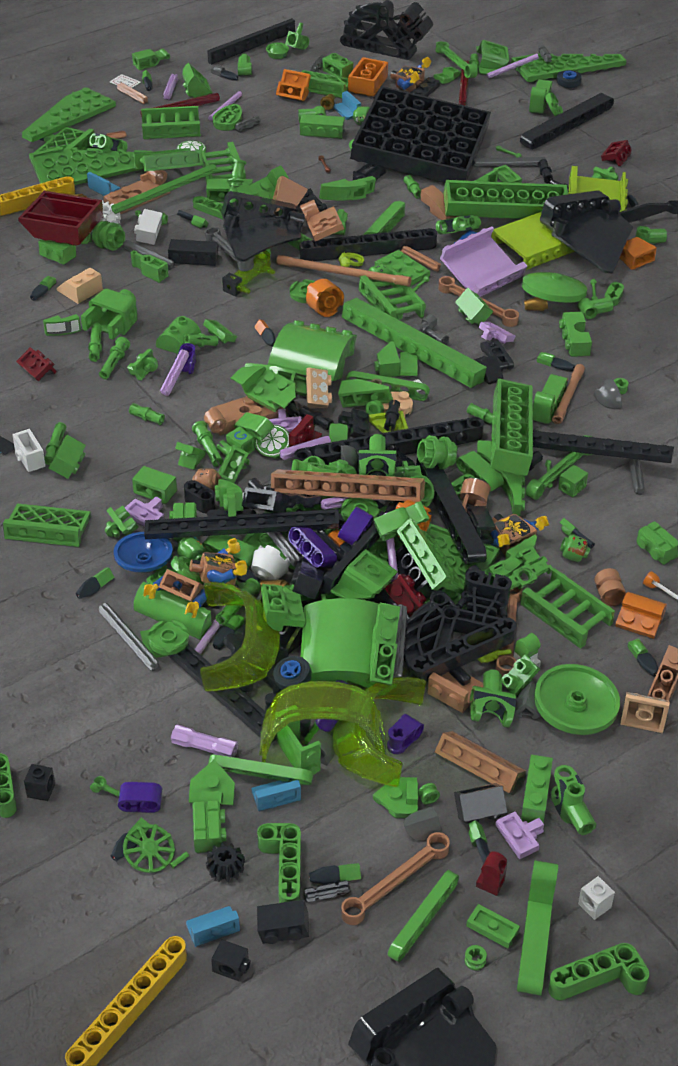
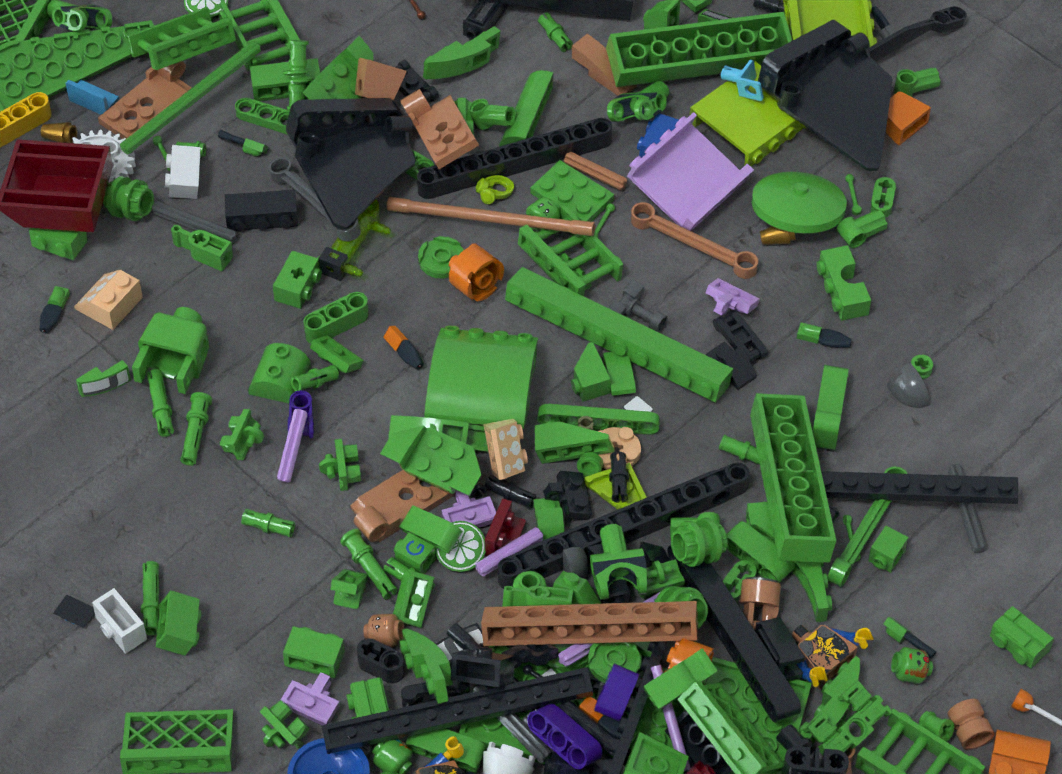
camera: 10 degrees left, 10 degrees up
(35, 364) = (84, 458): dark red bracket -> none
(205, 289) = (296, 279): none -> bright green brick
(206, 388) = (344, 454): none -> bright green hips
(226, 311) = (336, 317): none -> bright green beam
(355, 220) = (489, 115): none -> bright green piece
(473, 306) = (692, 257): brick -> none
(531, 217) = (744, 79): none -> medium azure bracket
(561, 409) = (848, 425): nougat piece -> none
(588, 584) = (940, 727): none -> bright green bush

